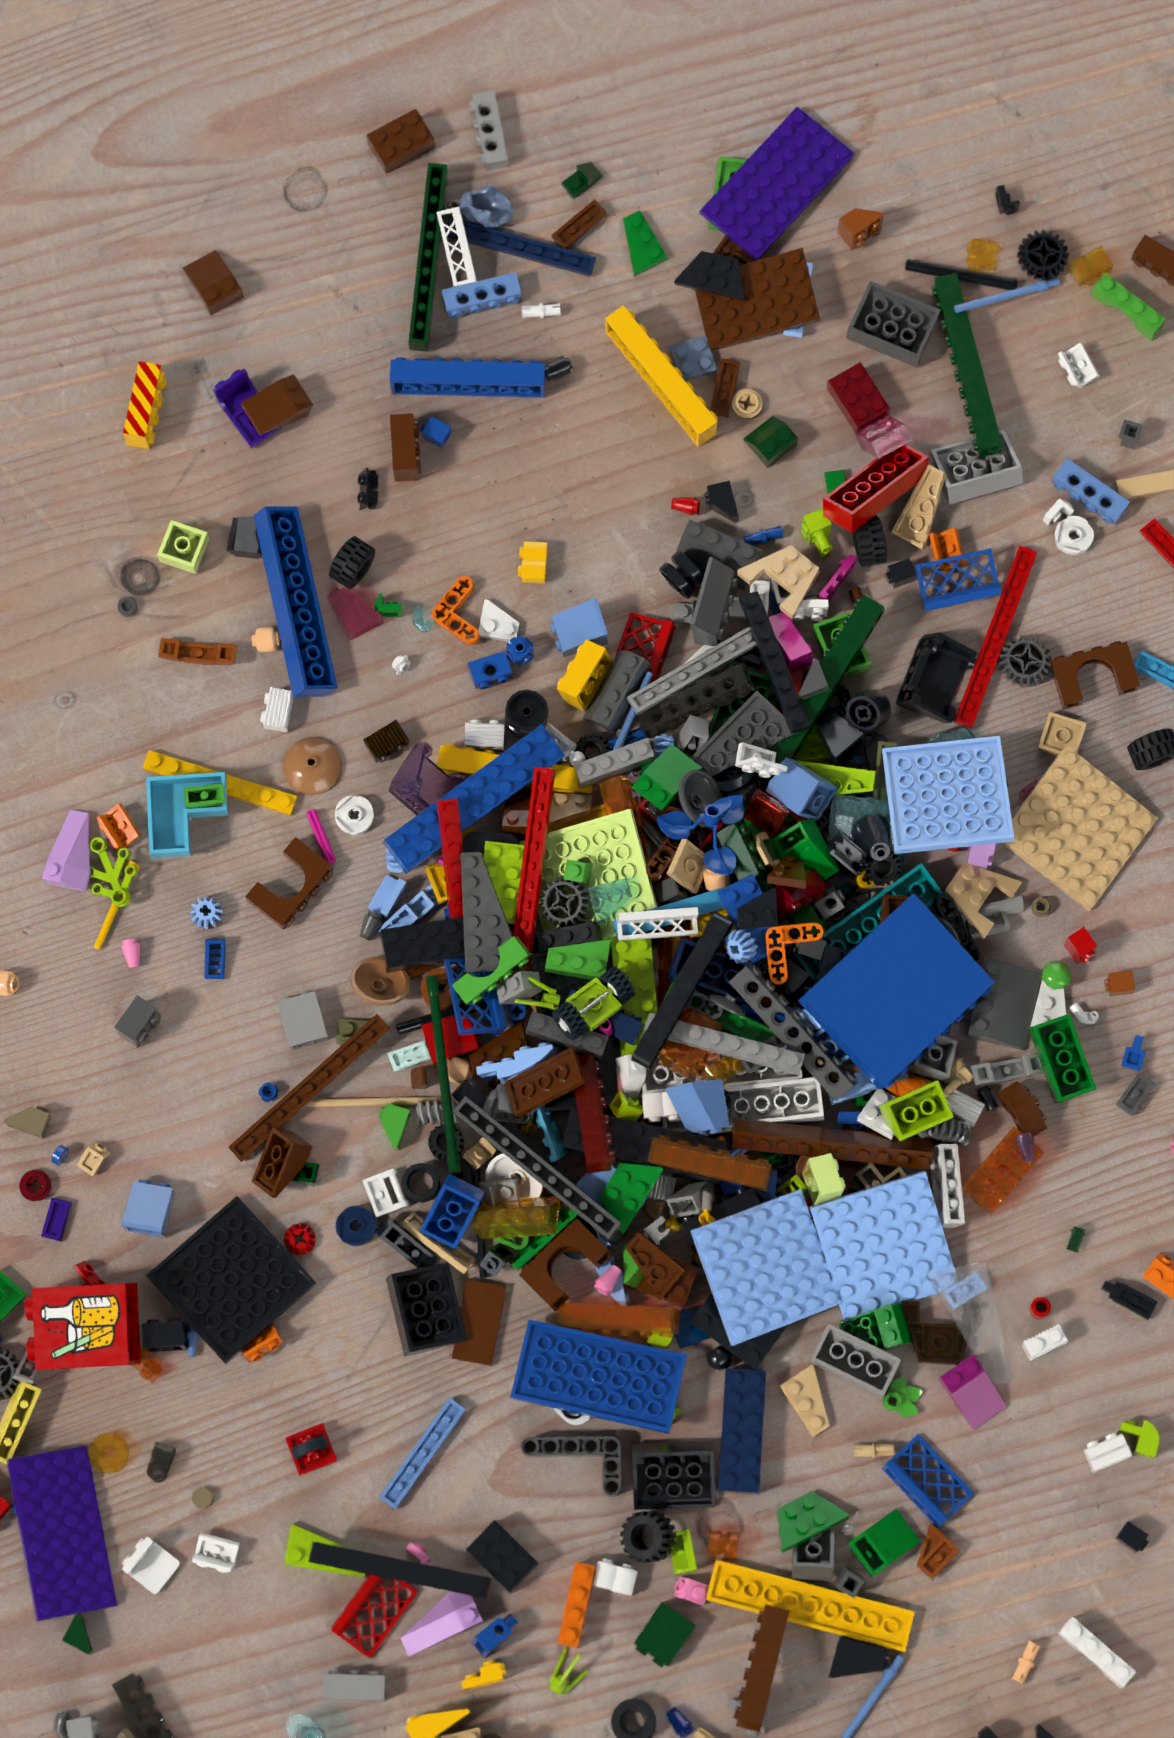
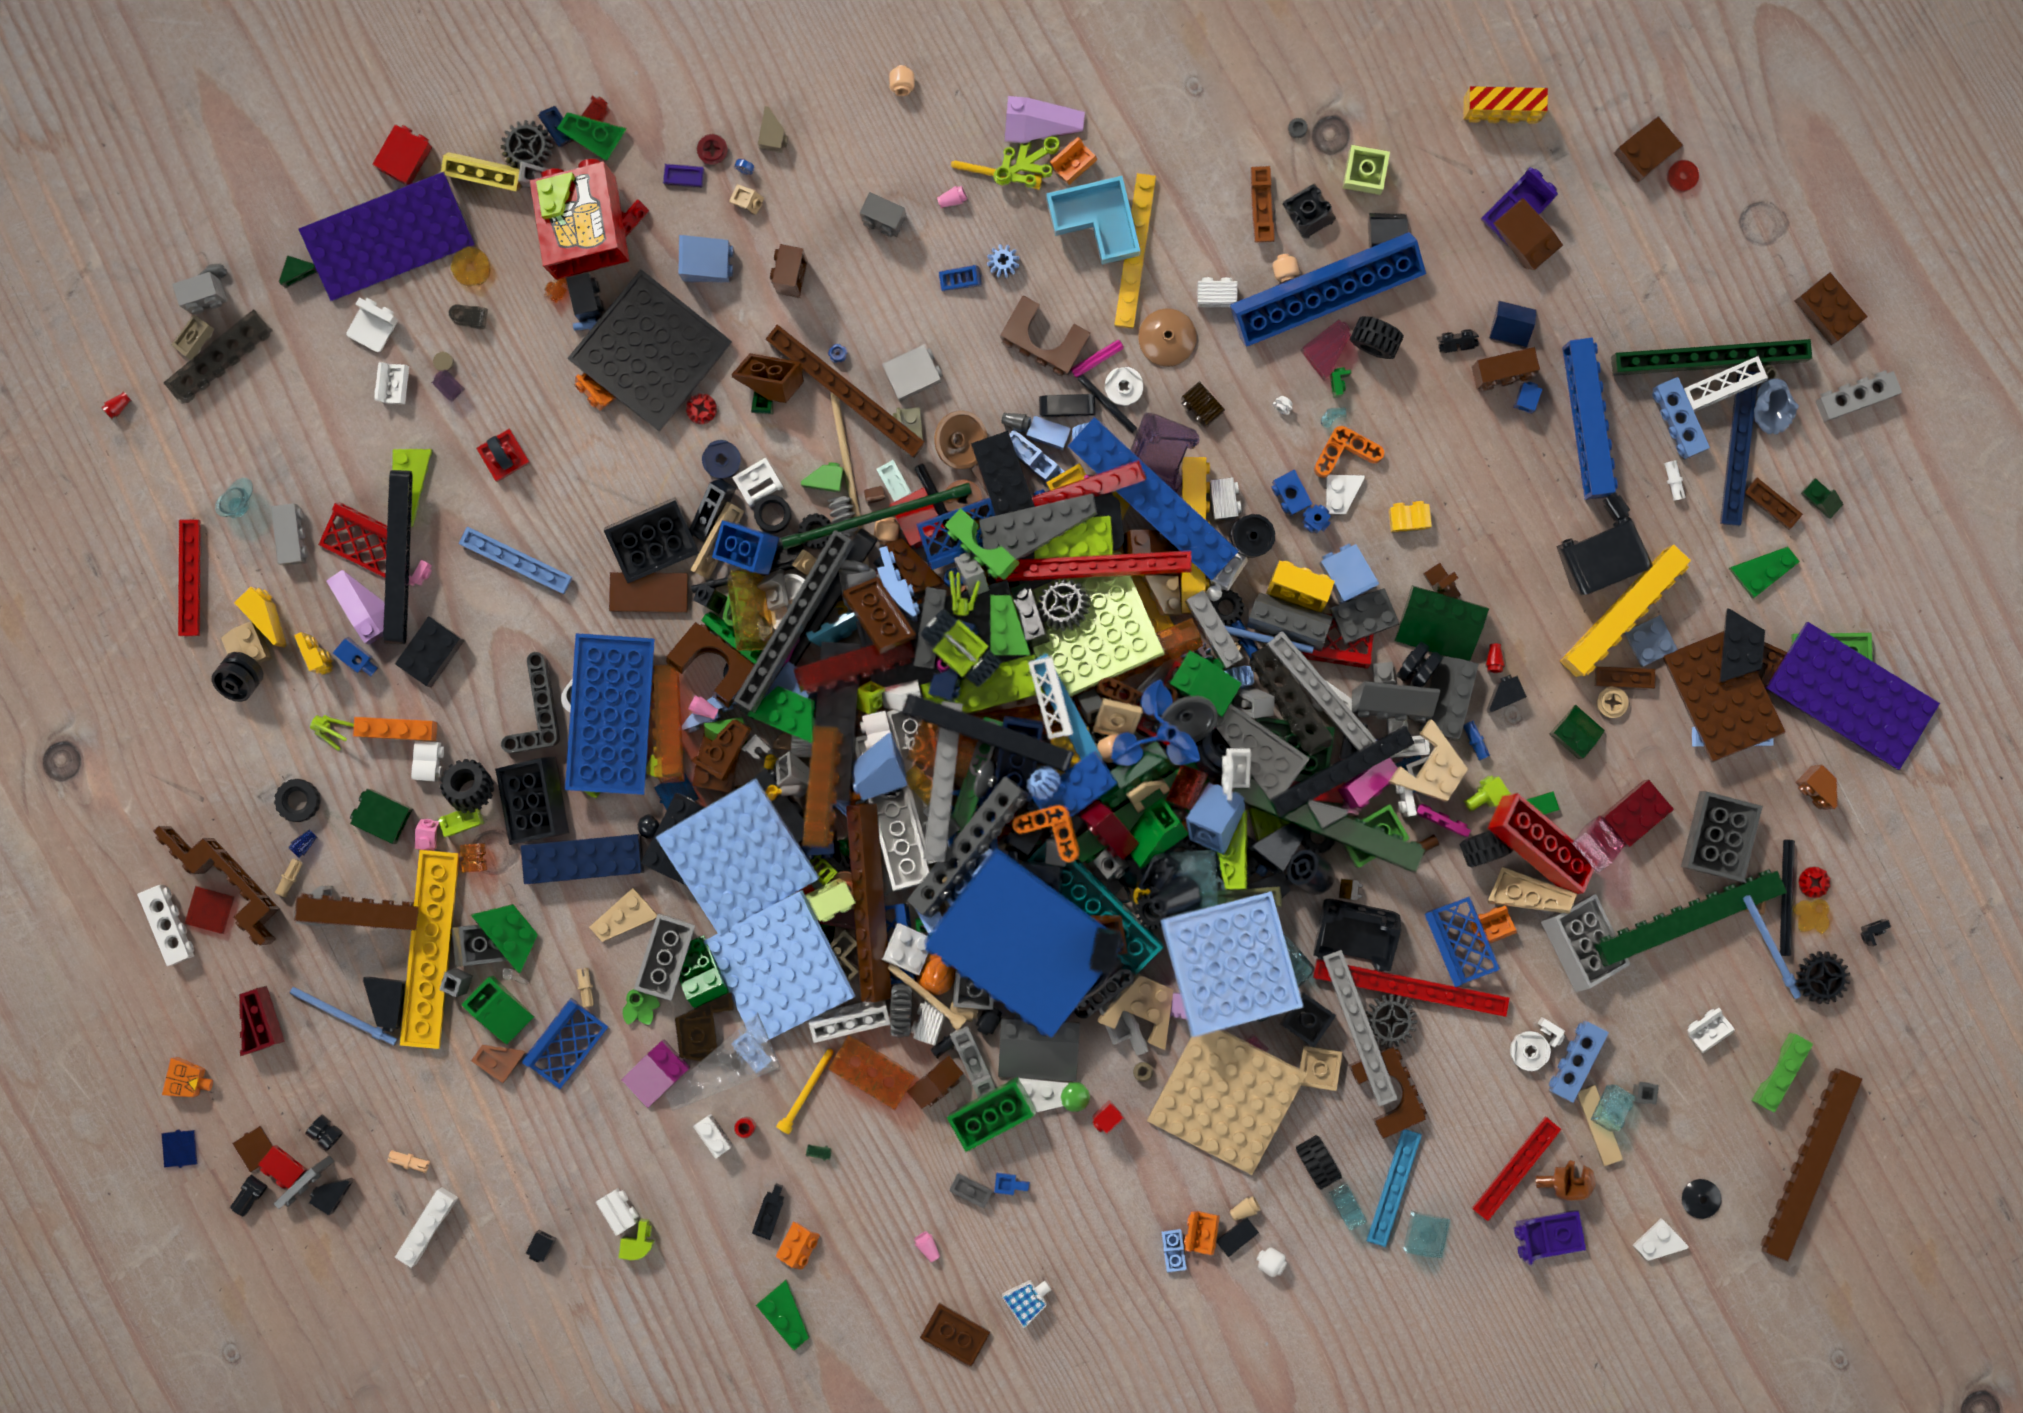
camera: 85 degrees right, 10 degrees up
(56, 1344) = (553, 194): none -> lime wing
(178, 1122) = (789, 270): none -> reddish brown brick
(204, 796) = (1111, 235): bright green slope -> none
(212, 608) = (1309, 211): none -> black slope
(227, 1495) = (447, 385): none -> clear purple brick
(245, 246) = (1691, 172): none -> clear red piece
(360, 435) = (1513, 324): none -> dark blue slope
(363, 873) = (1067, 405): none -> black beam
(368, 834) = (1107, 403): none -> black bar
(577, 871) = (1094, 611): bright green brick -> none
(605, 541) = (1441, 581): none -> reddish brown bracket
(606, 386) = (1604, 557): none -> black windscreen
(608, 898) = (1072, 646): clear light blue wing -> none
(624, 621) = (1364, 616): none -> dark grey plate
(642, 548) = (1442, 623): none -> dark green slope
(759, 911) = (1079, 795): black wing -> none
(788, 873) = (1125, 818): reddish brown wing -> none
(890, 678) = (1349, 889): none -> dark brown tile
(900, 573) = (1460, 883): black brick -> none
(916, 910) = (1105, 950): none -> black brick
(916, 1110) = (911, 979): lime slope -> none
(950, 256) = (1805, 882): none -> red gear
(968, 1048) = (989, 1021): none -> black brick
(1016, 737) = (1308, 1021): none -> black brick
(1025, 1145) = (896, 1091): clear purple cone -> none
(1028, 688) = (1360, 1028): none -> light grey plate
(1041, 1266) = (786, 1123): none -> yellow piece
(1082, 1016) = (1039, 1129): white arm -> none
(1090, 266) = (1819, 1028): clear yellow brick -> none
(1120, 983) = (1077, 1160): dark orange brick -> none
(1140, 466) = (1613, 1108): none -> clear light blue brick

